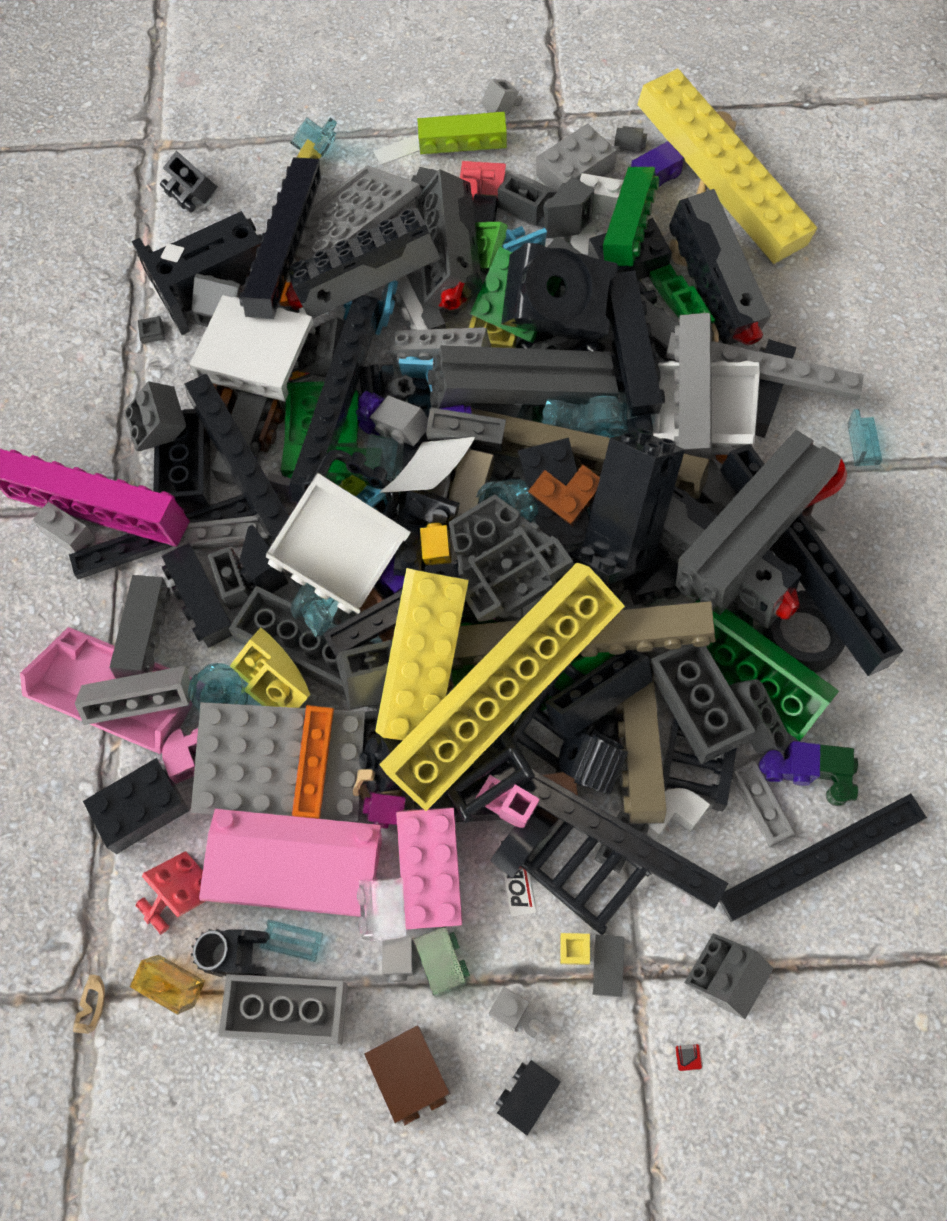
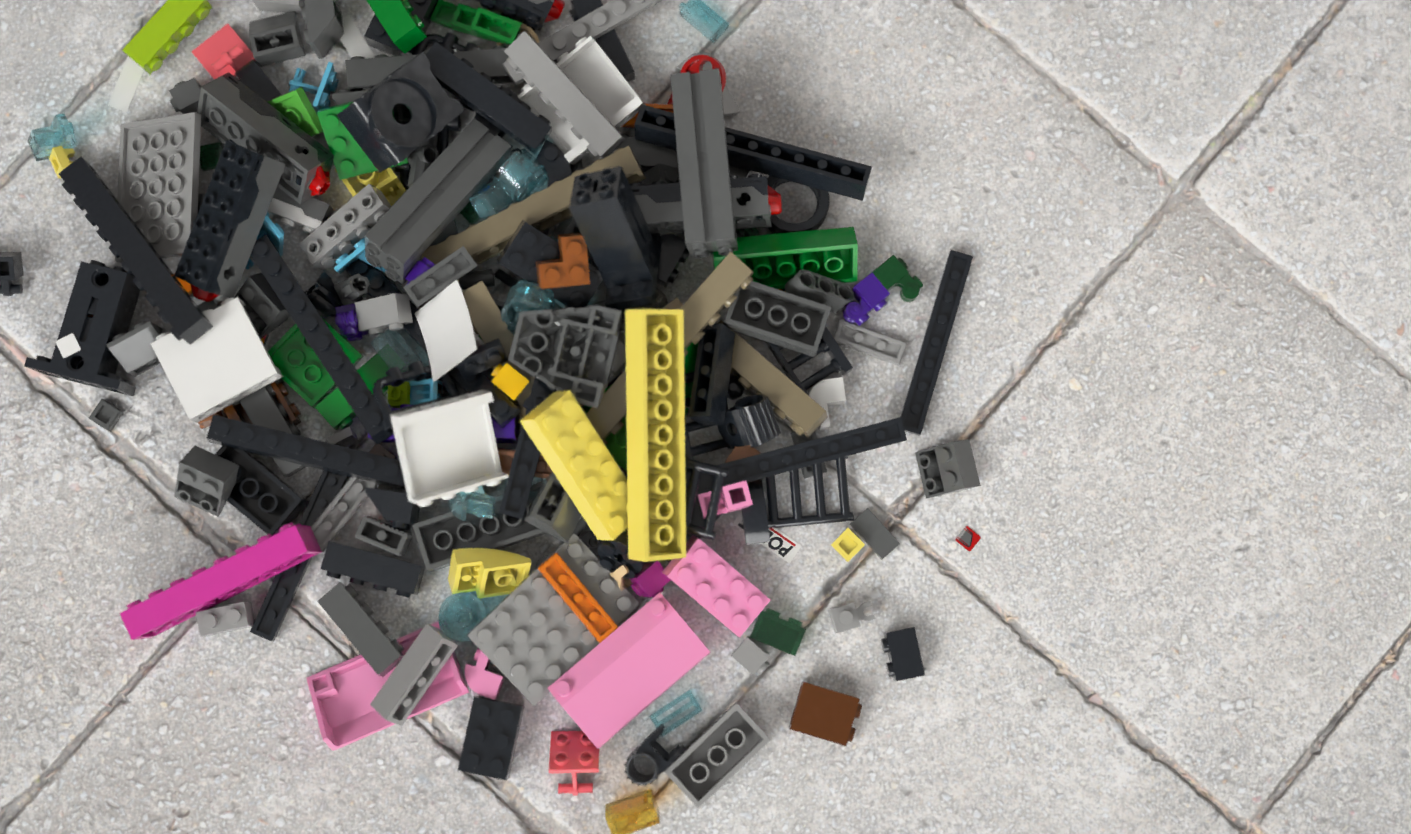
camera: 55 degrees left, 15 degrees up
(381, 908) = (715, 639): clear brick -> none

